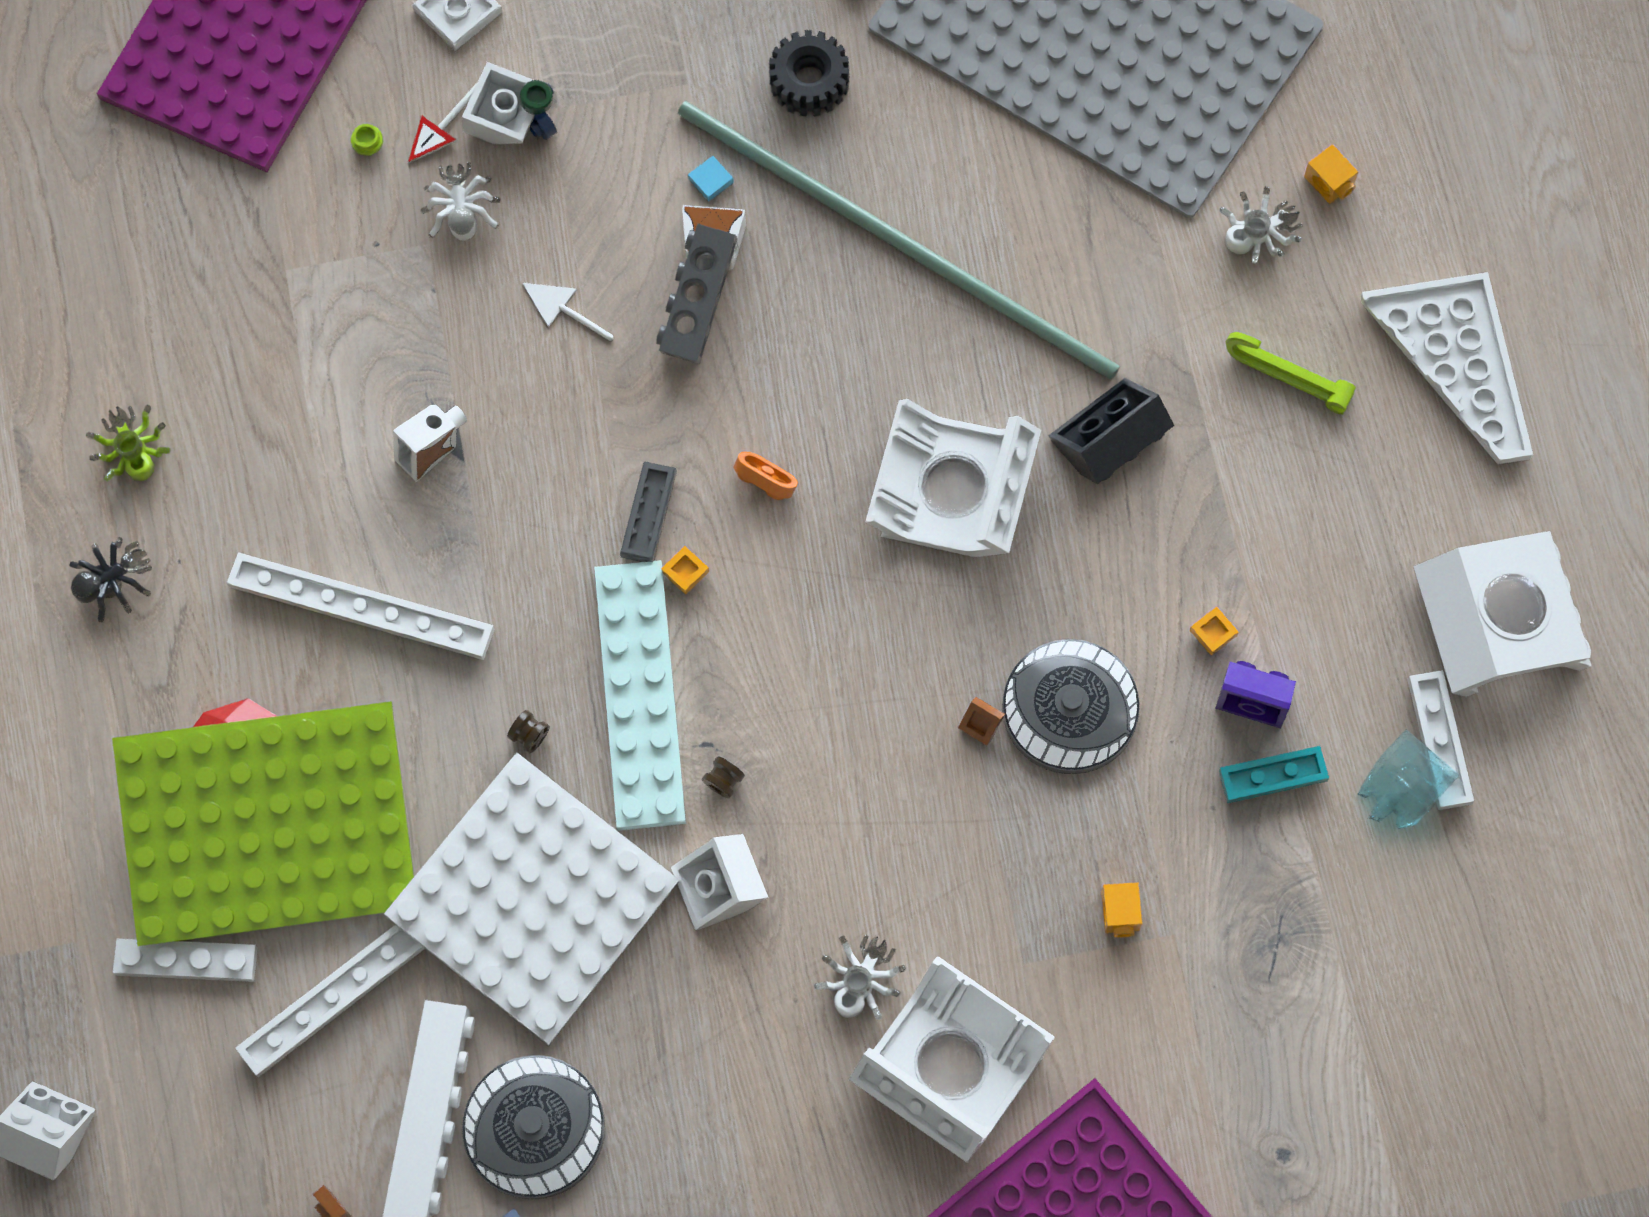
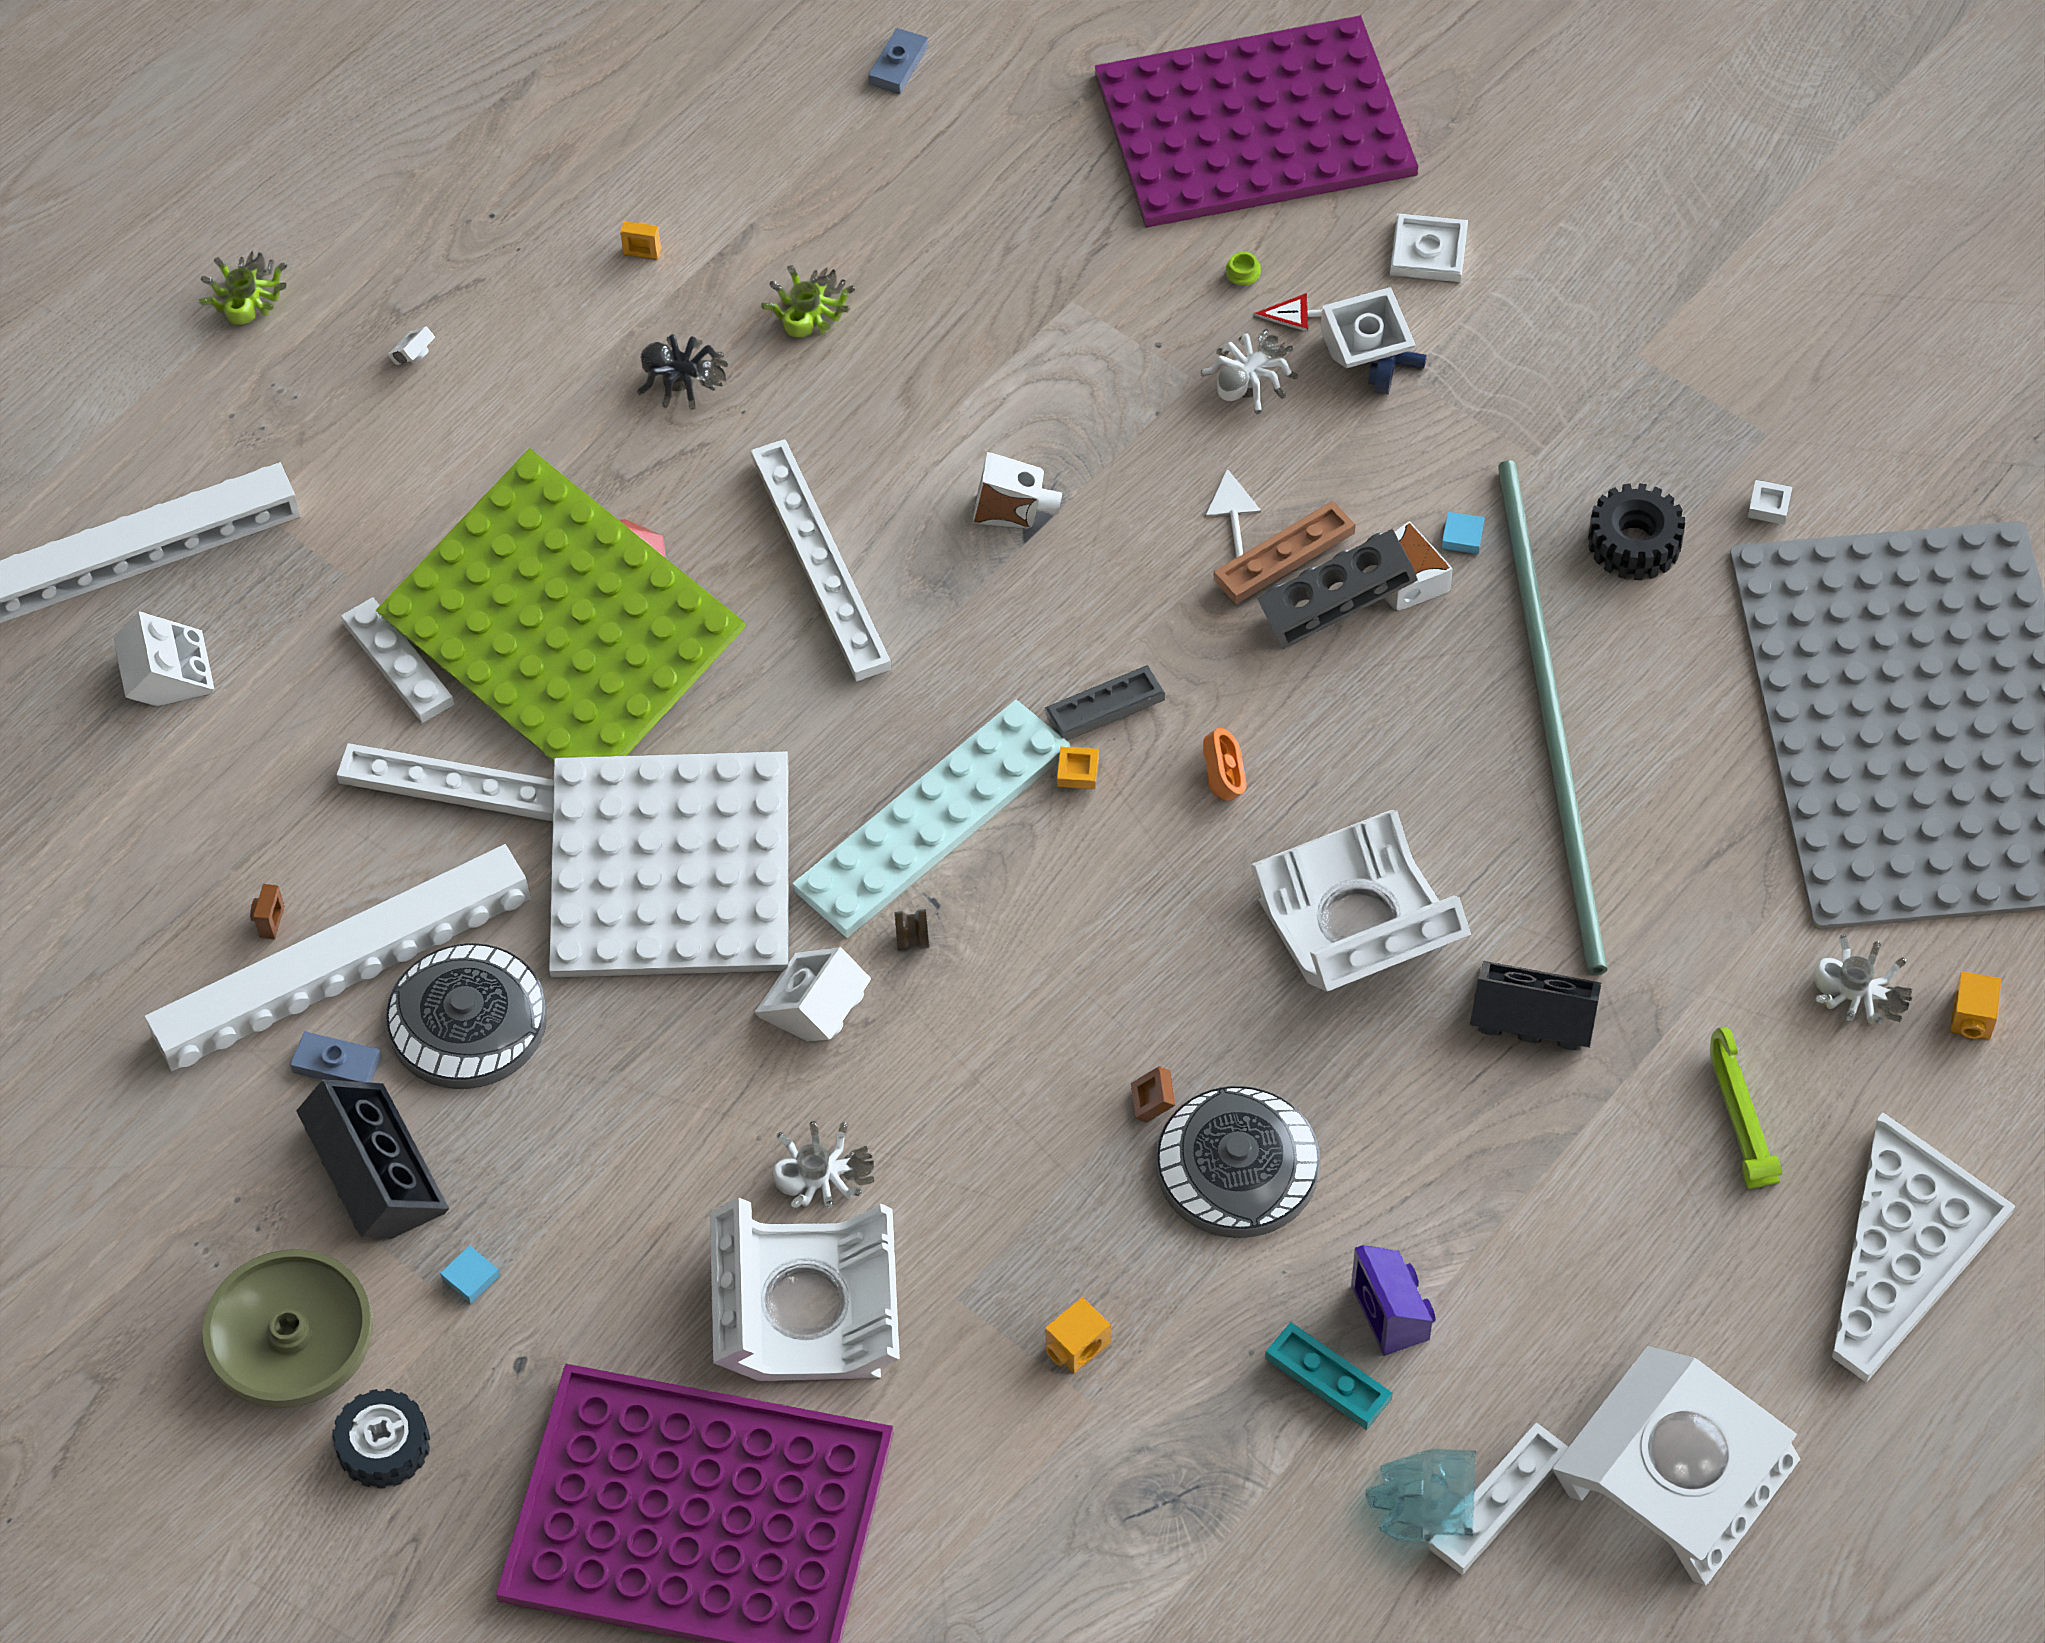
camera: 50 degrees right, 15 degrees down
(528, 731) = (819, 755): dark brown wheel -> none
(536, 97) = (1395, 343): dark green tile -> none
(628, 302) = (1284, 552): none -> nougat plate
(1214, 631) = (1422, 1225): light orange plate -> none

